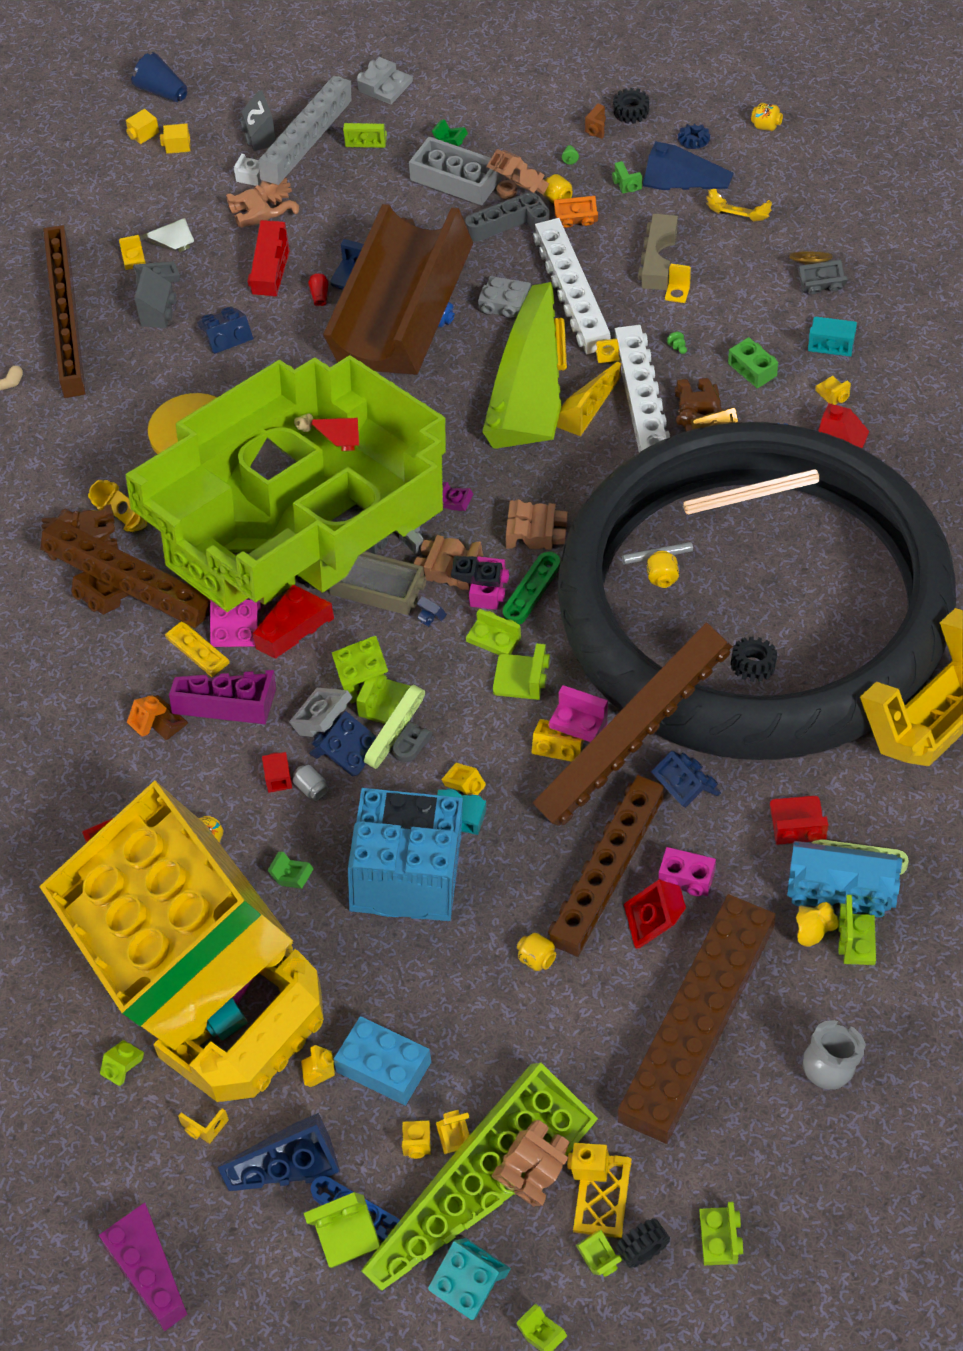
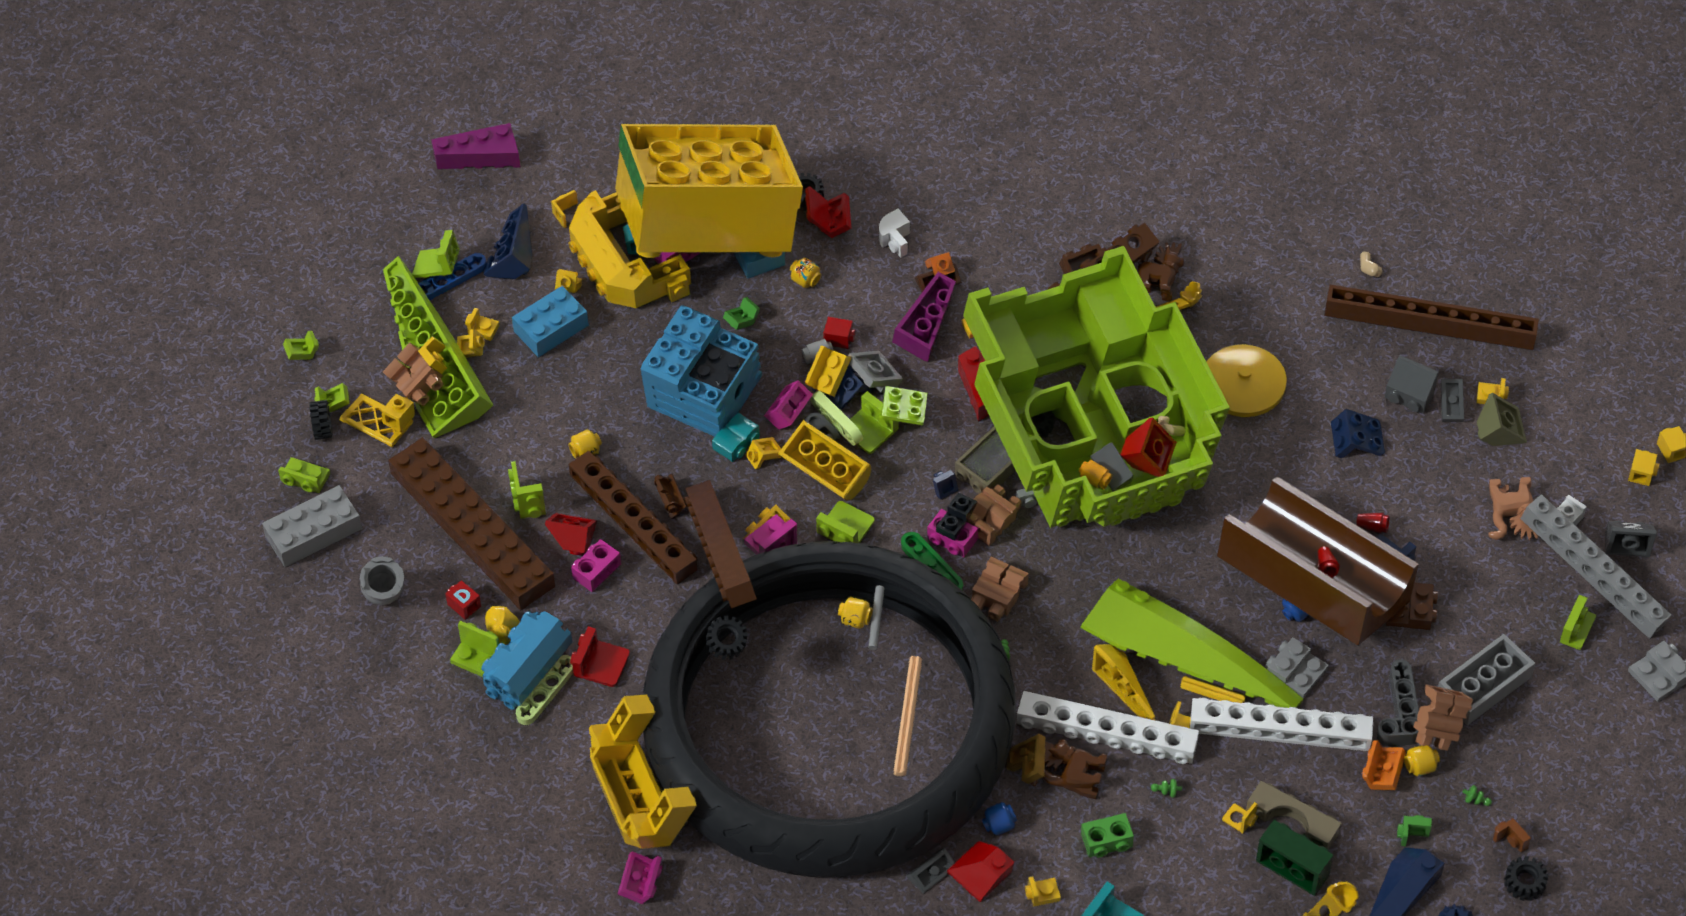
camera: 110 degrees right, 0 degrees up
(115, 777) = (892, 230): none -> white brick
(269, 258) = (1425, 489): red wedge -> none
(344, 744) = (827, 371): none -> yellow bracket
(370, 453) = (1112, 460): none -> dark grey slope
(389, 458) = (1096, 474): none -> light orange brick
(398, 768) = (788, 405): none -> dark pink brick
(400, 278) = (1327, 562): none -> red cone
(449, 135) = (1548, 697): green bracket -> none
(455, 716) = (826, 461): none -> yellow brick
(456, 498) = (1069, 541): magenta slope -> none
(467, 1277) = (366, 323): teal bracket -> none
(494, 633) = (898, 522): lime bracket -> none
(507, 1143) = (431, 353): none -> yellow bracket
(562, 841) = (670, 495): none -> reddish brown hinge
(640, 978) = (526, 499): none -> lime bracket
(684, 777) = (671, 591): dark blue bracket -> none
(704, 231) = (1294, 857): none -> dark green brick
(789, 1183) = (312, 526): none -> light grey brick
(798, 980) = (463, 599): none -> red brick

